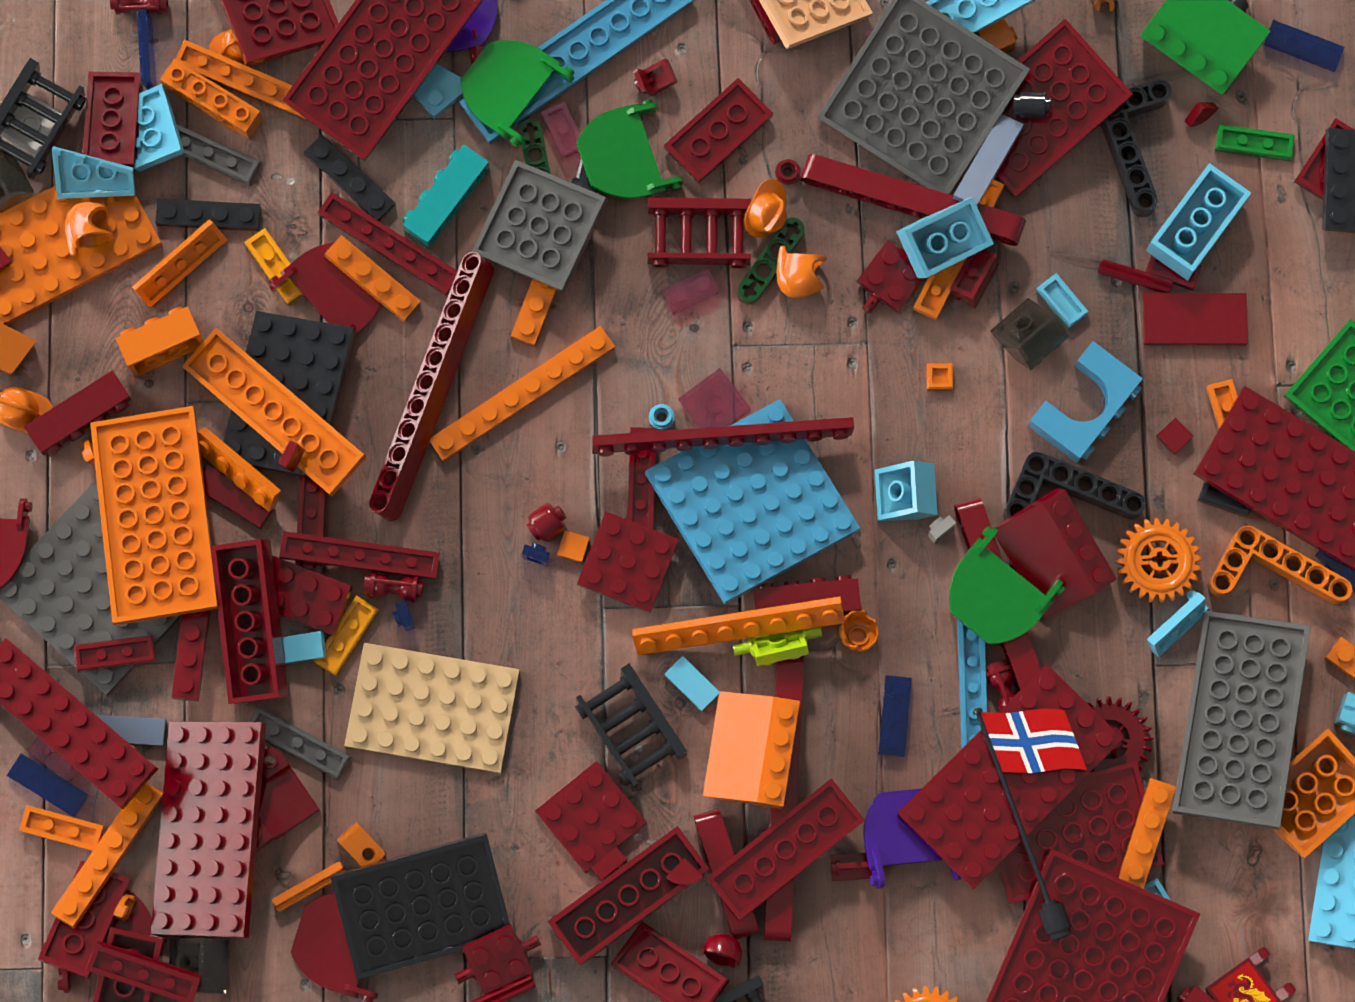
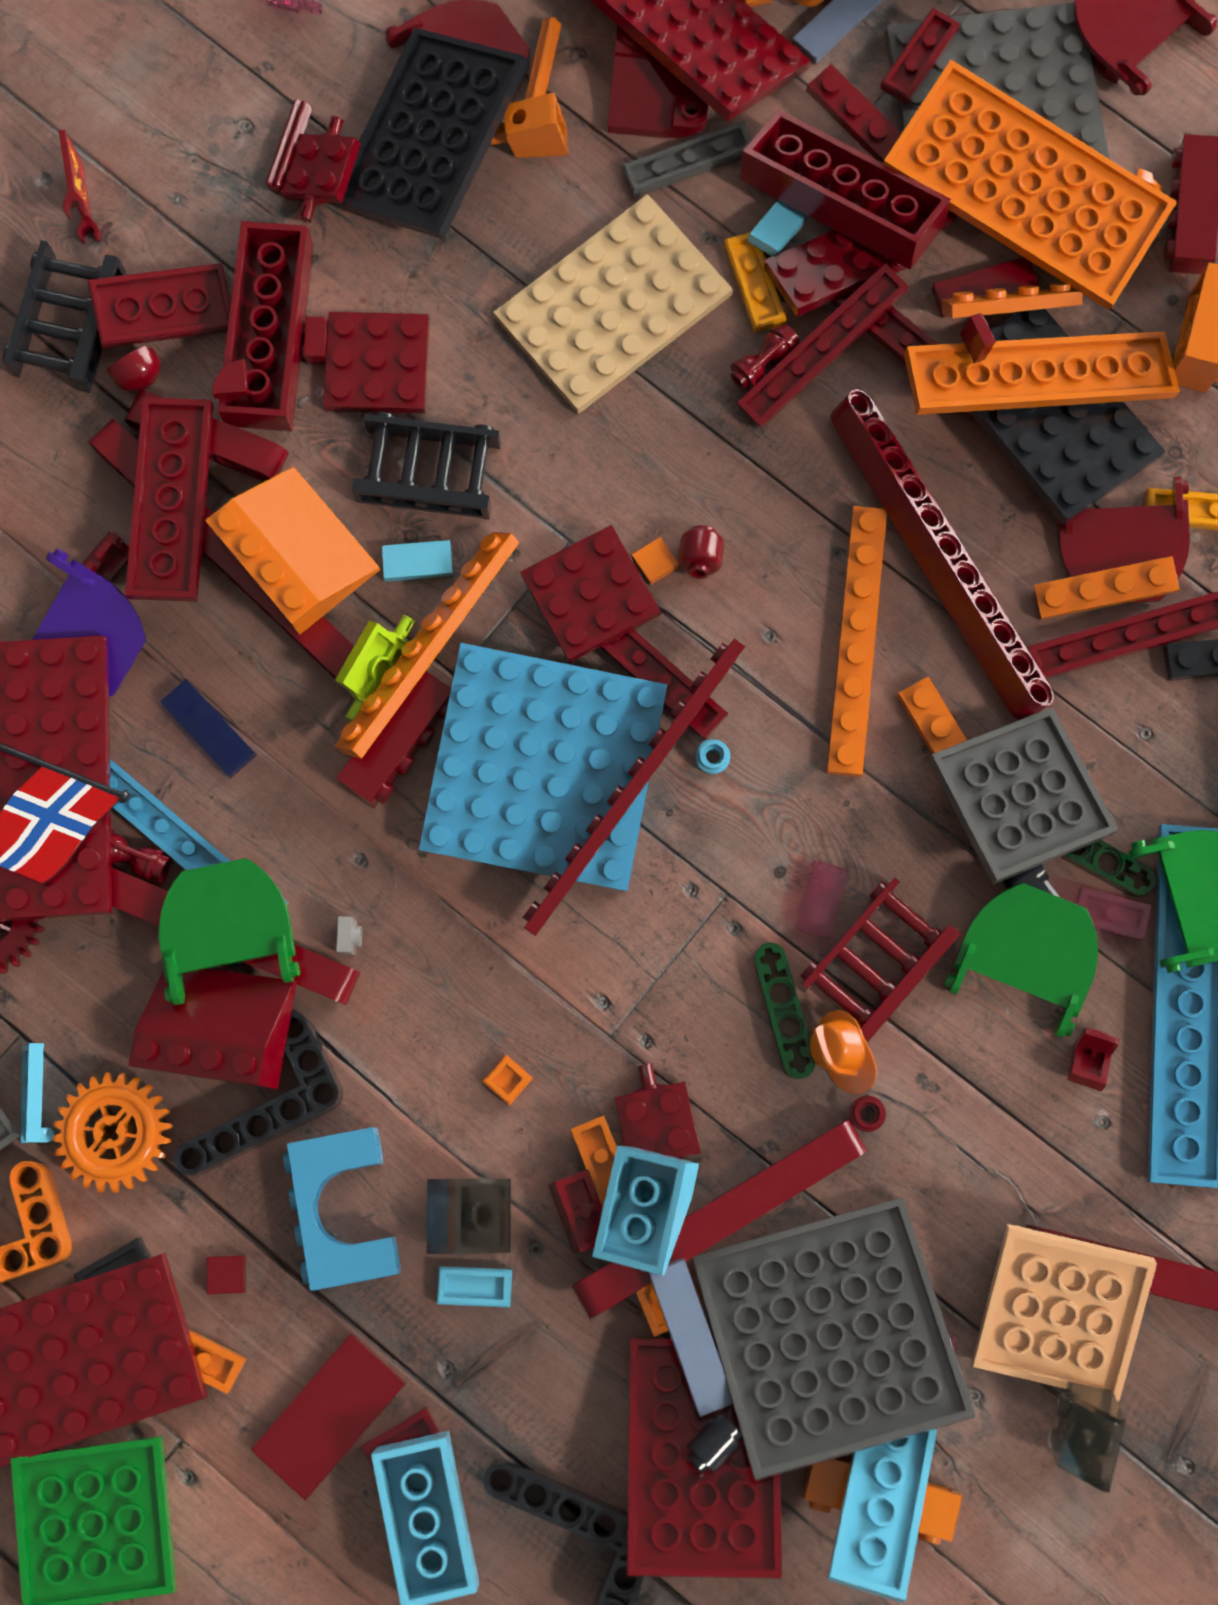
camera: 135 degrees right, 0 degrees up
(403, 616) = (725, 344): clear blue plate -> none
(446, 196) = (1136, 732): teal brick -> none
(536, 553) = (677, 515): clear blue plate -> none
(714, 402) = (680, 822): clear pink tile -> none
(718, 130) = (976, 1078): dark red plate -> none
(797, 274) = (744, 1023): orange piece -> none
(858, 631) = (317, 760): orange hair -> none
(906, 491) = (416, 934): medium azure slope -> none
(1135, 276) = (430, 1392): dark red axle -> none

